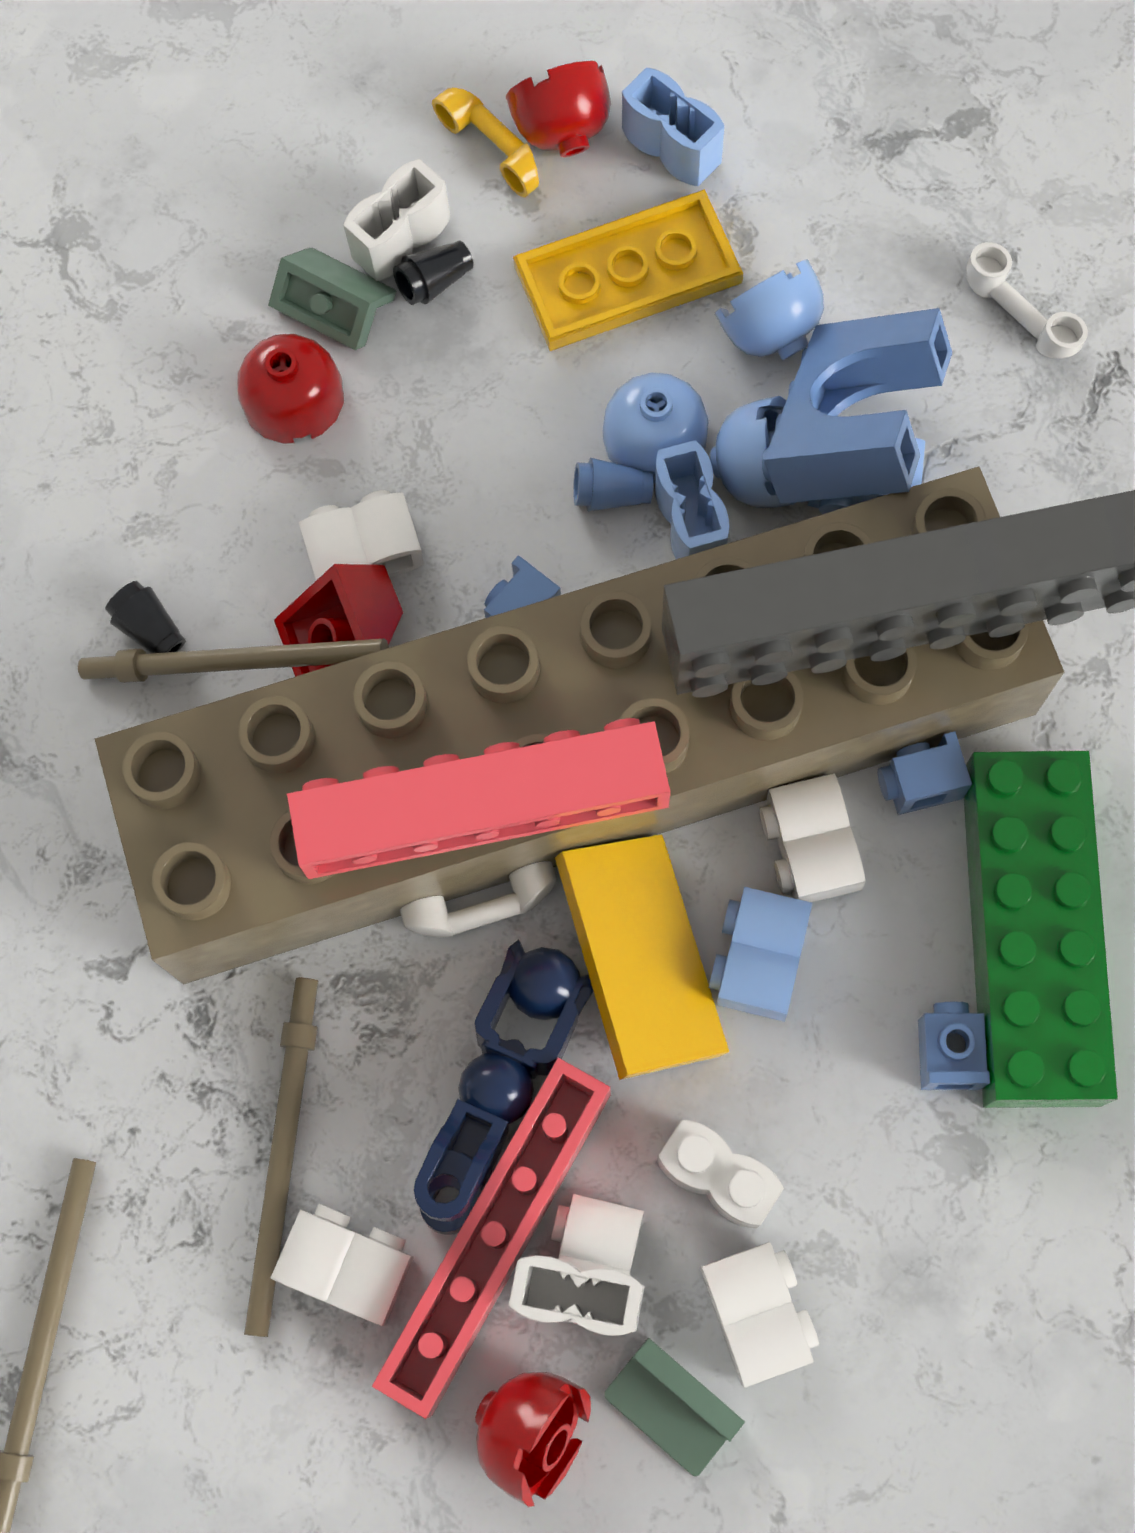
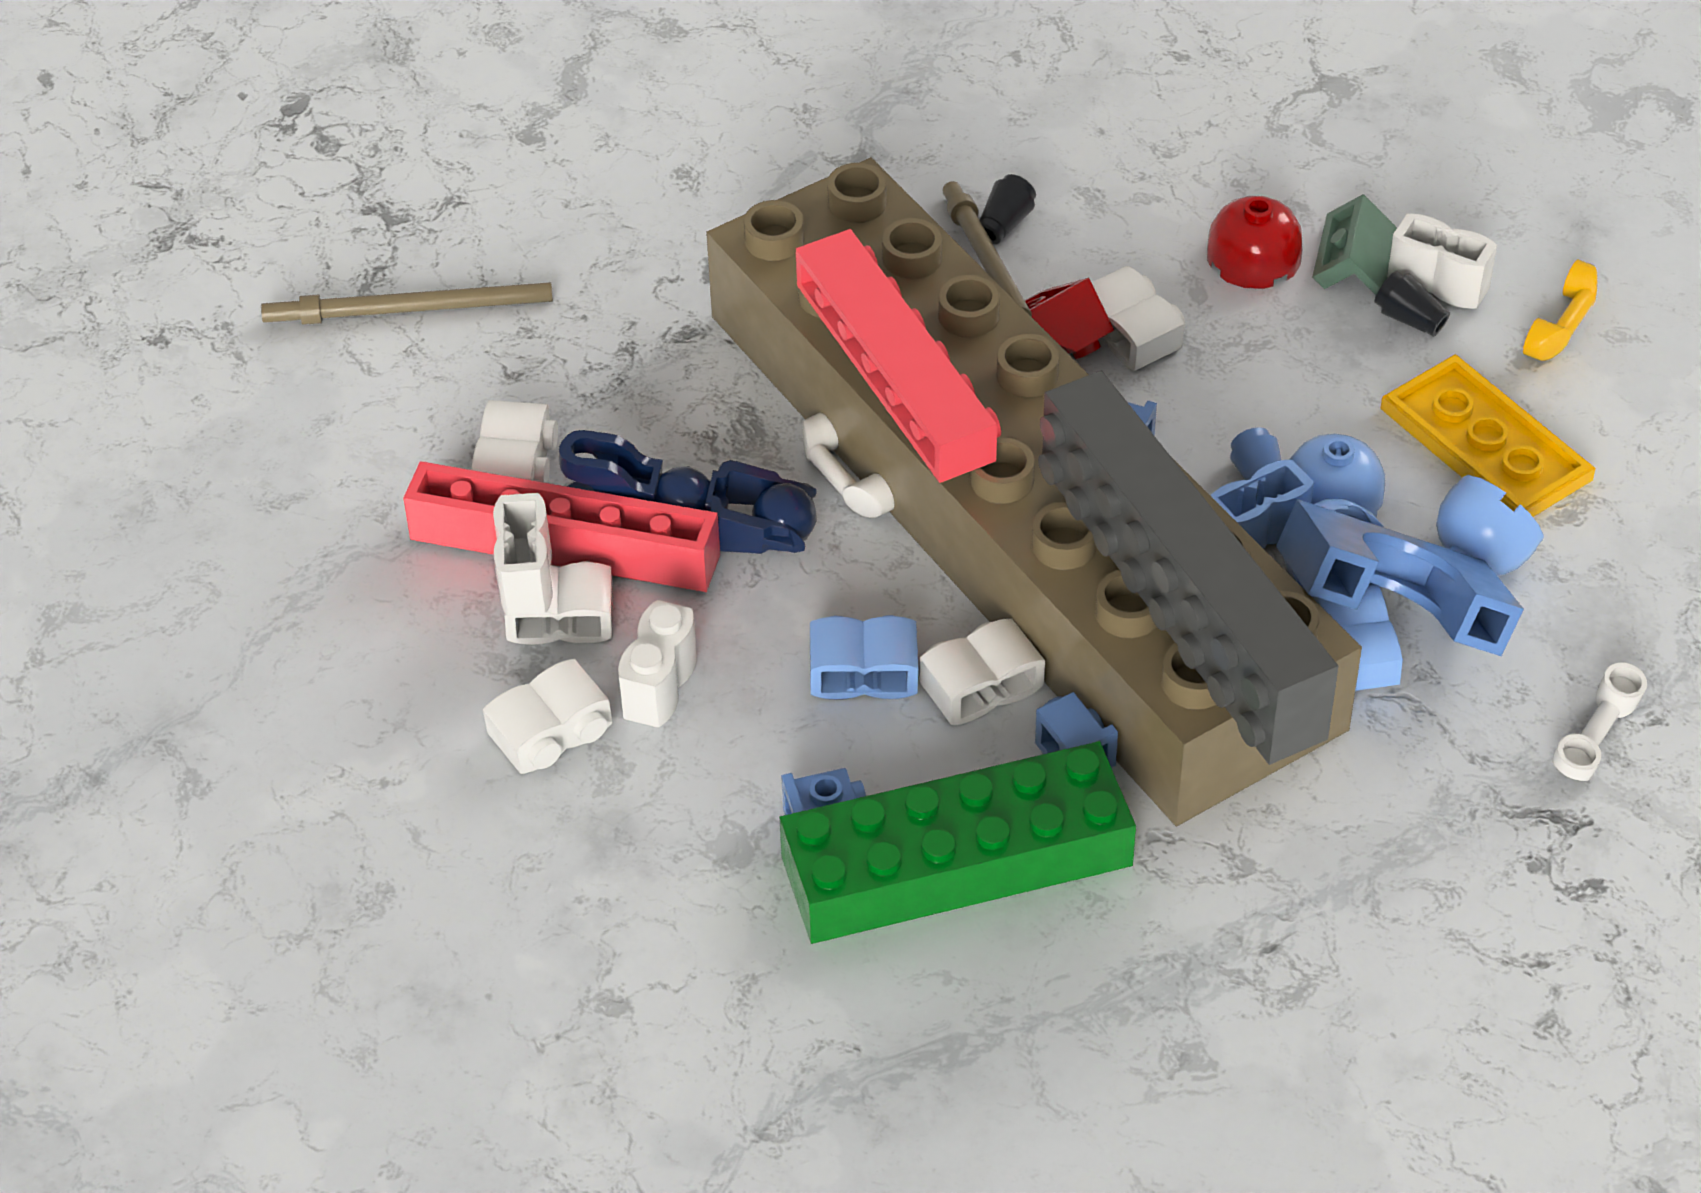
camera: 70 degrees right, 25 degrees down
(297, 1039) = (689, 387): dark tan bar -> none
(528, 1433) = (408, 587): red cylinder -> none
(562, 108) = (1615, 341): red cylinder -> none
(641, 956) = (831, 568): yellow tile -> none
(672, 126) = (1637, 418): light blue brick -> none
(672, 1408) = (460, 686): sand green panel -> none

